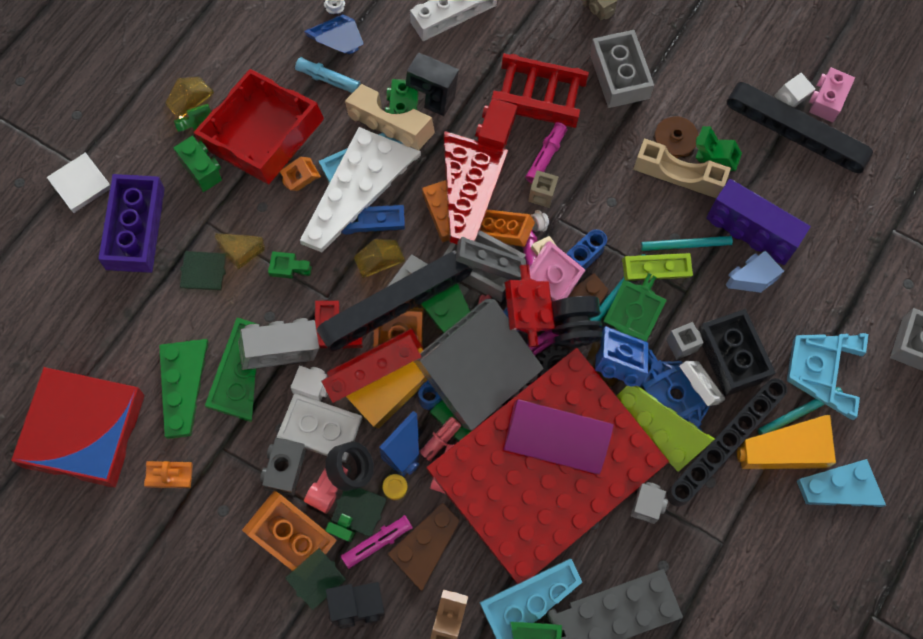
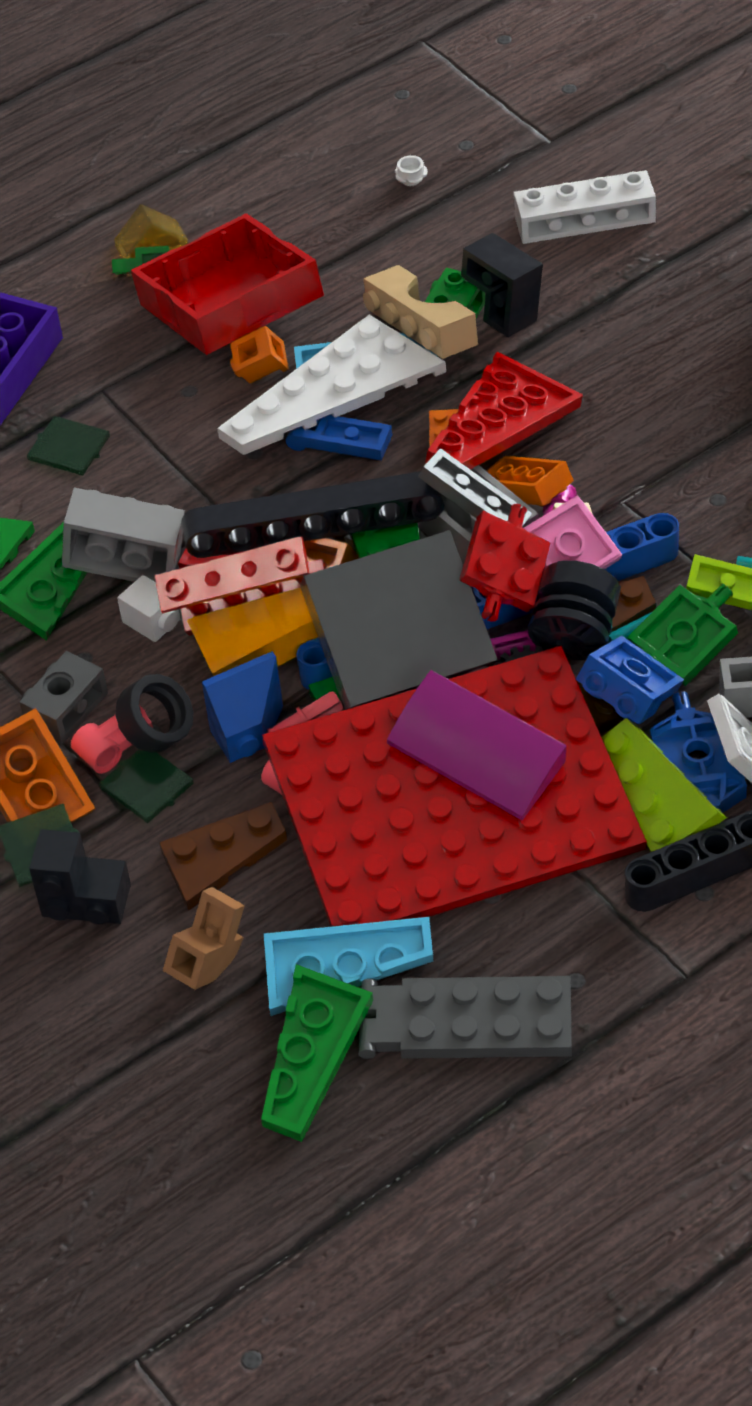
camera: 30 degrees right, 20 degrees down
(197, 163) = (121, 313): green brick -> none
(240, 248) = (133, 425): clear yellow slope -> none
(285, 265) = (186, 459): green plate -> none
(318, 425) = (132, 652): white tile -> none
(321, 73) = (348, 246): medium azure pin -> none
(338, 33) = (395, 205): slope -> none
(341, 529) = (107, 791): green tile -> none
(378, 256) = (323, 471): clear yellow slope -> none
(395, 487) = (212, 768): yellow tile -> none
(401, 524) = (149, 824): dark pink pin -> none
(497, 123) = (582, 358): red brick -> none
(541, 221) = (590, 491): white plate -> none
(543, 189) = (609, 449): dark tan brick -> none
(545, 109) = (658, 356): red fence -> none
(550, 146) = (652, 404): dark pink pin -> none
(649, 503) = (586, 884): light grey brick -> none

